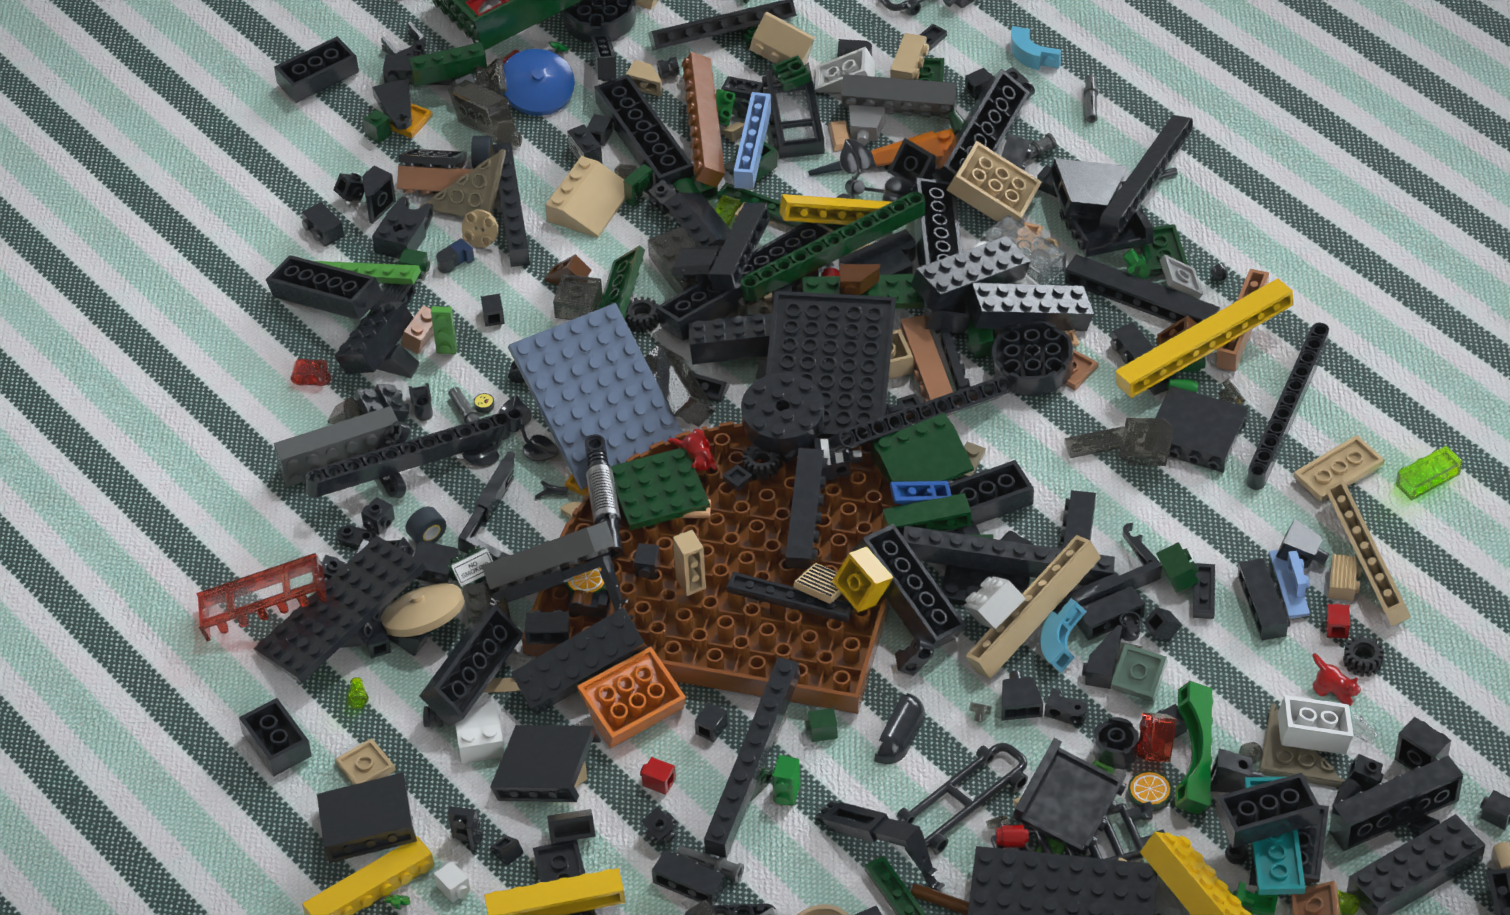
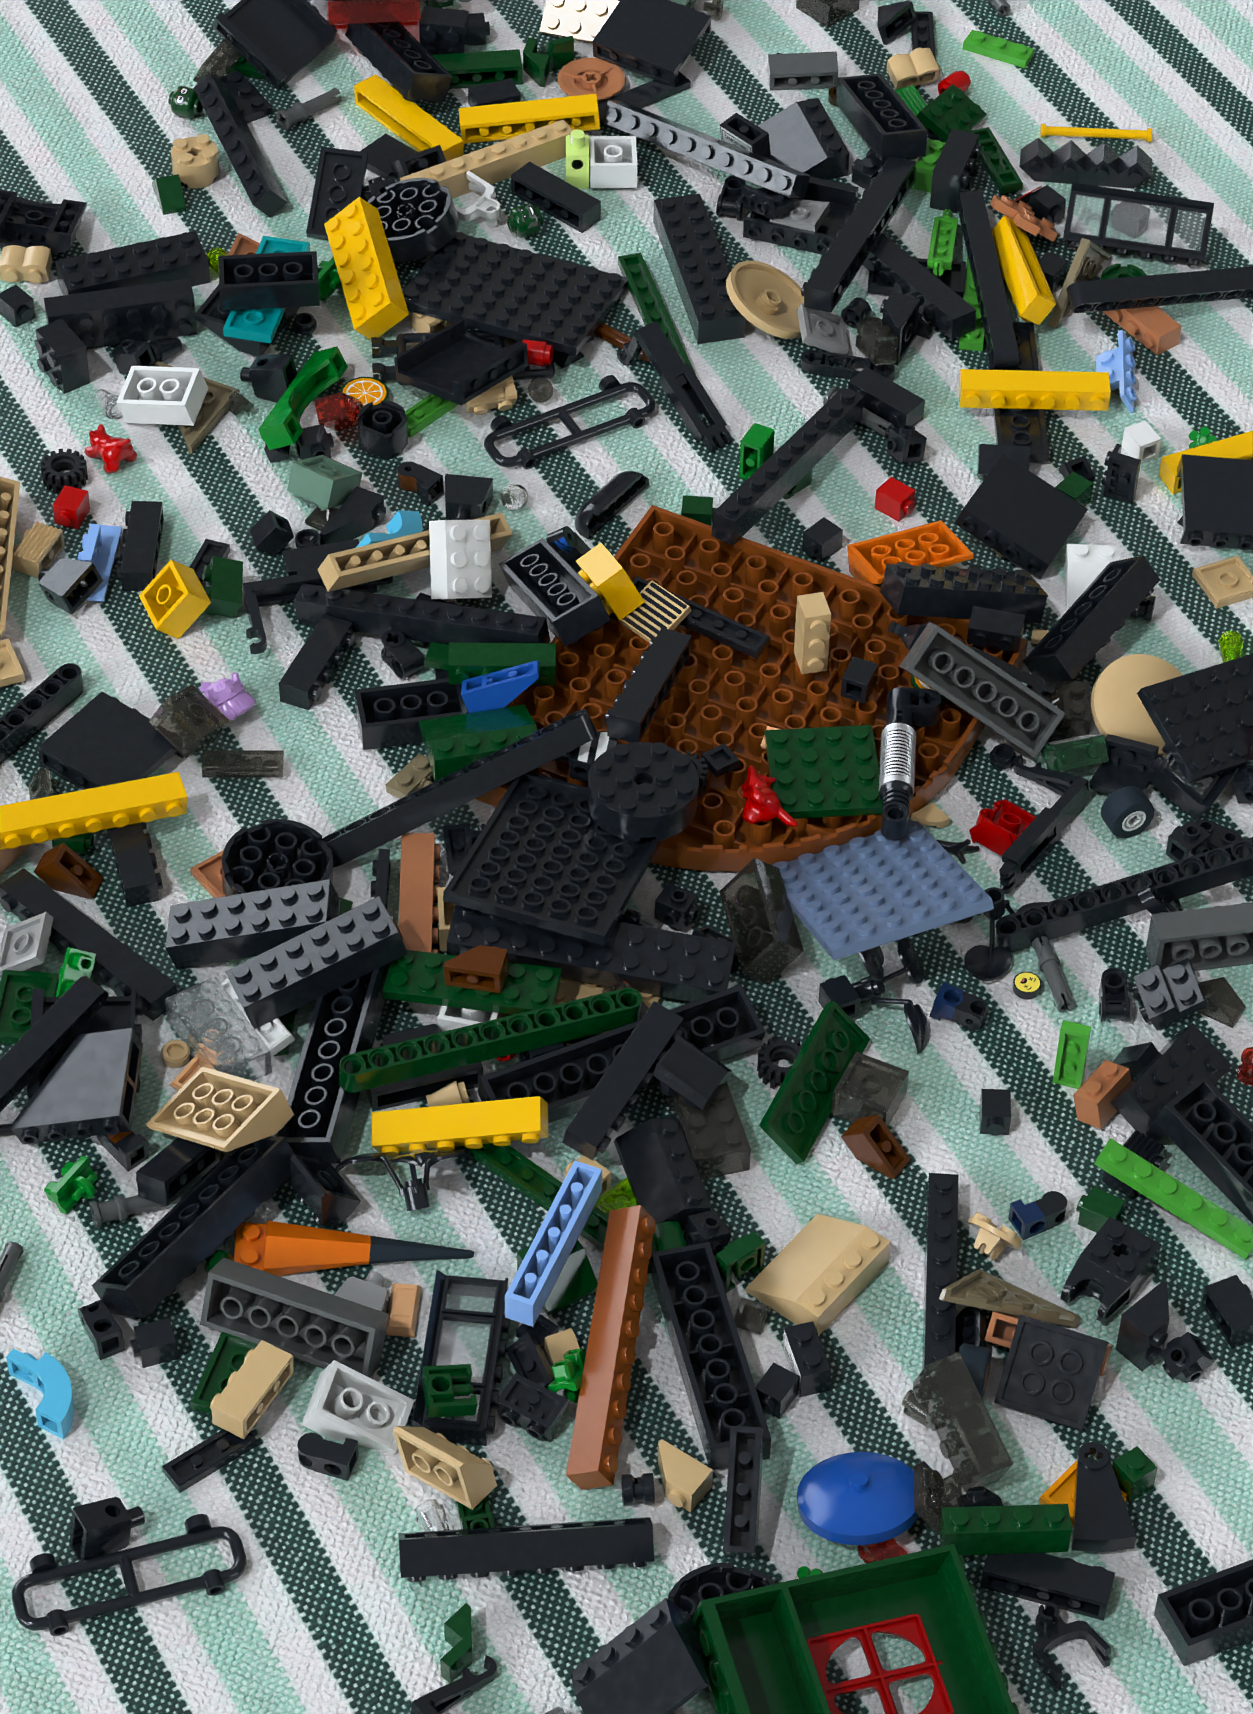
camera: 170 degrees left, 0 degrees up
(506, 813) = (1077, 488): none -> dark green brick
(515, 509) = (1000, 825): none -> red slope
(736, 392) = (676, 907): none -> black brick
(1064, 149) = (75, 1184): none -> green hips
(1132, 482) = (228, 696): none -> lavender hair
(1207, 540) = (174, 599): none -> yellow brick

